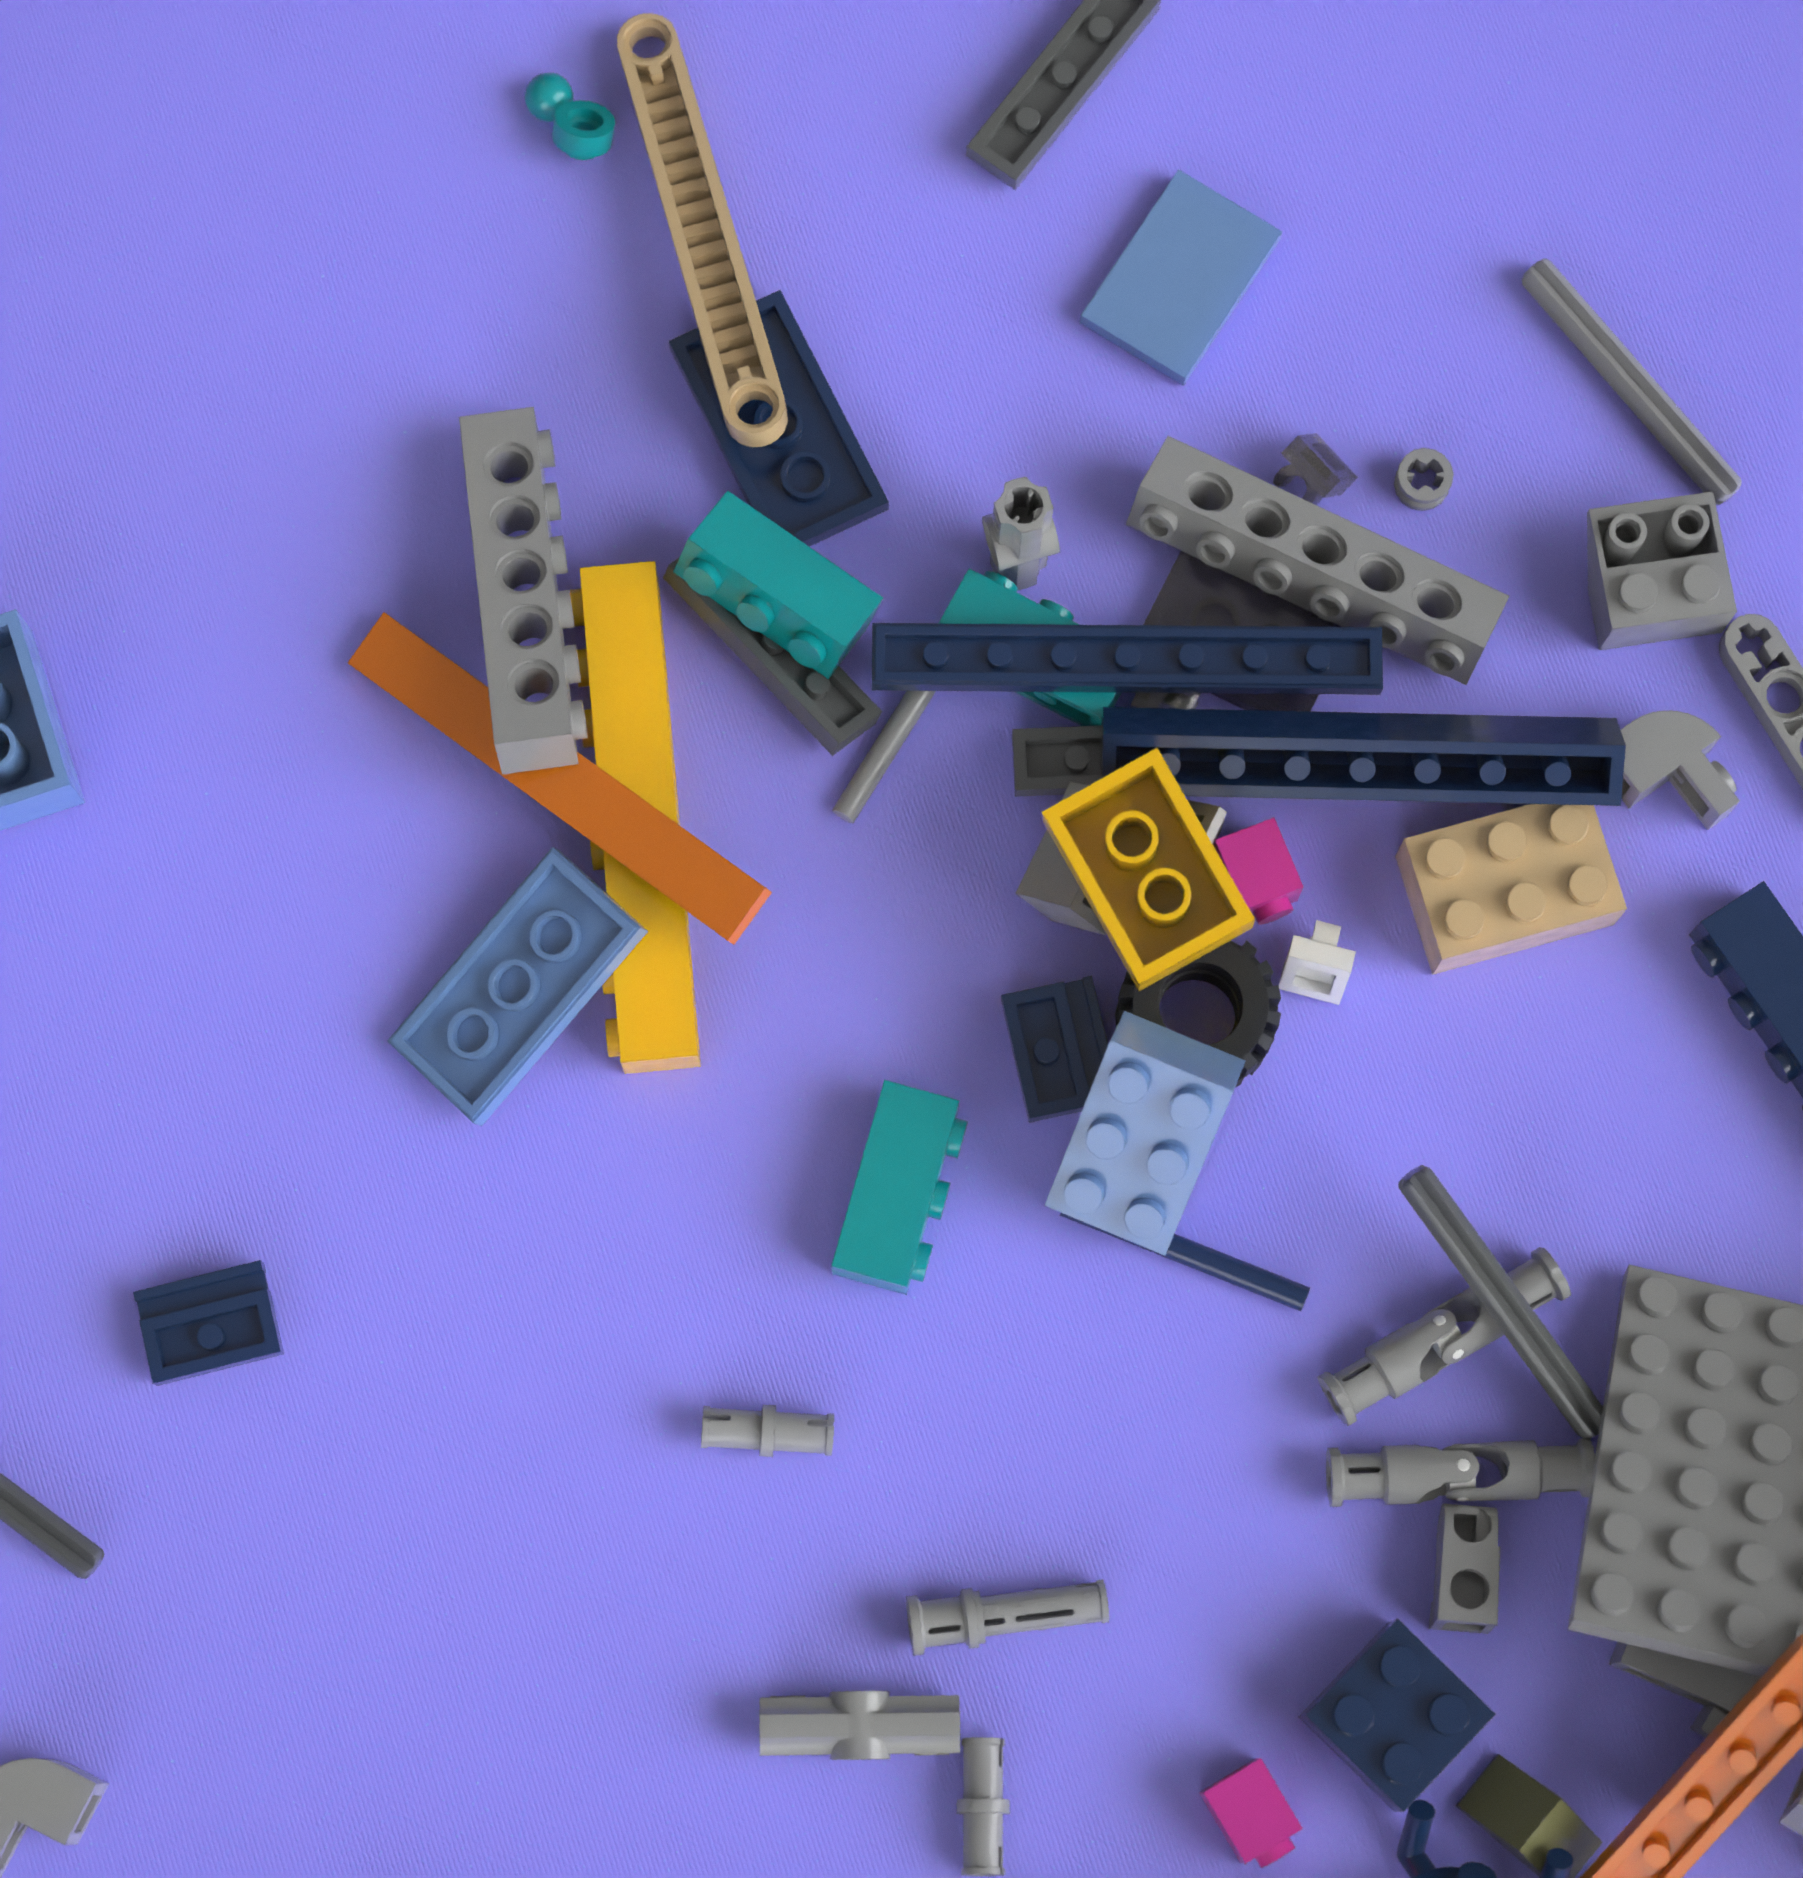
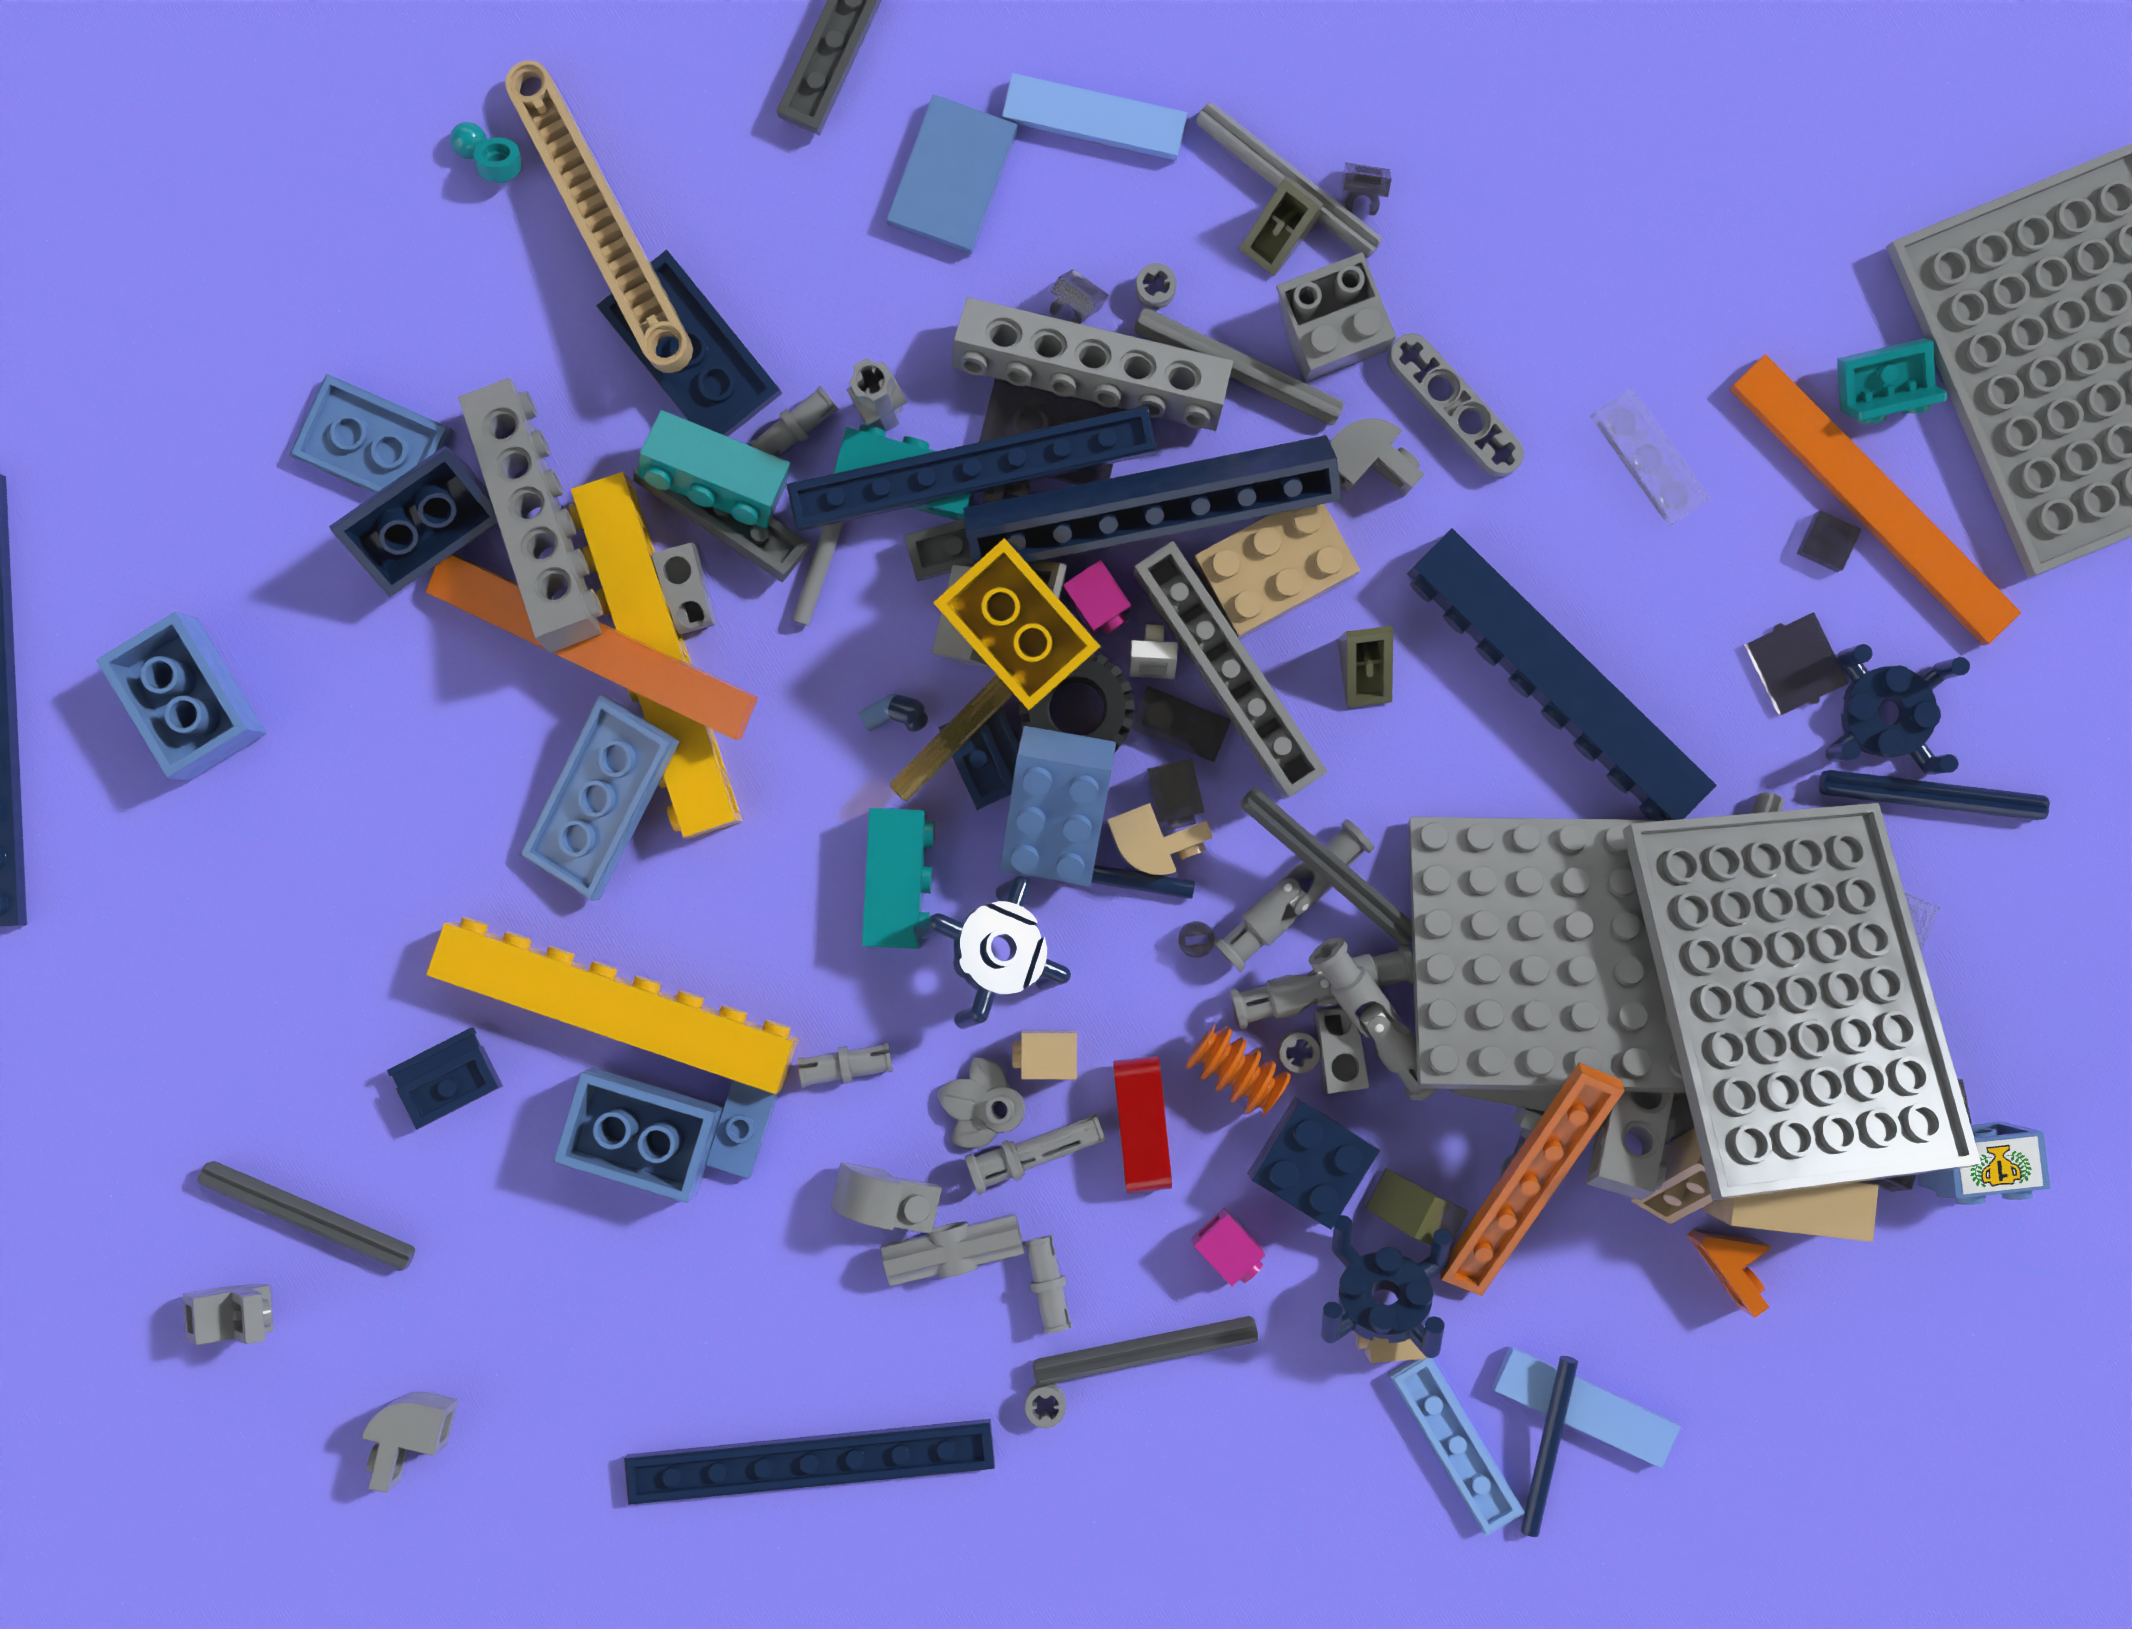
camera: 10 degrees left, 10 degrees up
(323, 454) = (365, 436): none -> medium blue tile
(367, 563) = (417, 520): none -> dark blue slope
(461, 1457) = (638, 1134): none -> medium blue brick
(469, 1276) = (613, 1005): none -> yellow brick
(602, 1487) = (741, 1129): none -> medium blue plate
(699, 732) = (684, 587): none -> light grey leg
(783, 1628) = (883, 1200): none -> light grey brick
(902, 550) = (796, 423): none -> light grey pin
(934, 1528) = (974, 1103): none -> light grey plate
(948, 958) = (896, 708): none -> arm
(988, 1318) = (976, 961): none -> plate
(1020, 1010) = (951, 738): none -> clear yellow axle
(1052, 1478) = (1046, 1054): none -> tan brick
(1165, 1610) = (1142, 1124): none -> red beam
(1250, 1220) = (1145, 848): none -> tan brick
(1294, 1382) = (1198, 949): none -> clear smoke hinge
(1308, 1158) = (1175, 793): none -> clear smoke brick
(1316, 1561) = (1238, 1070): none -> orange piece
(1334, 1068) = (1180, 724): none -> clear smoke plate
(1388, 245) = (1094, 116): none -> light blue tile
(1415, 1577) = (1307, 1063): none -> light grey bush
(1418, 1007) = (1228, 670): none -> light grey brick
(1522, 612) = (1244, 368): none -> light grey axle
(1544, 1569) = (1354, 987): none -> light grey piece
(1610, 437) = (1282, 226): none -> olive slope
(1610, 1042) = (1367, 665): none -> olive slope
(1734, 404) = (1365, 181): none -> clear smoke tile

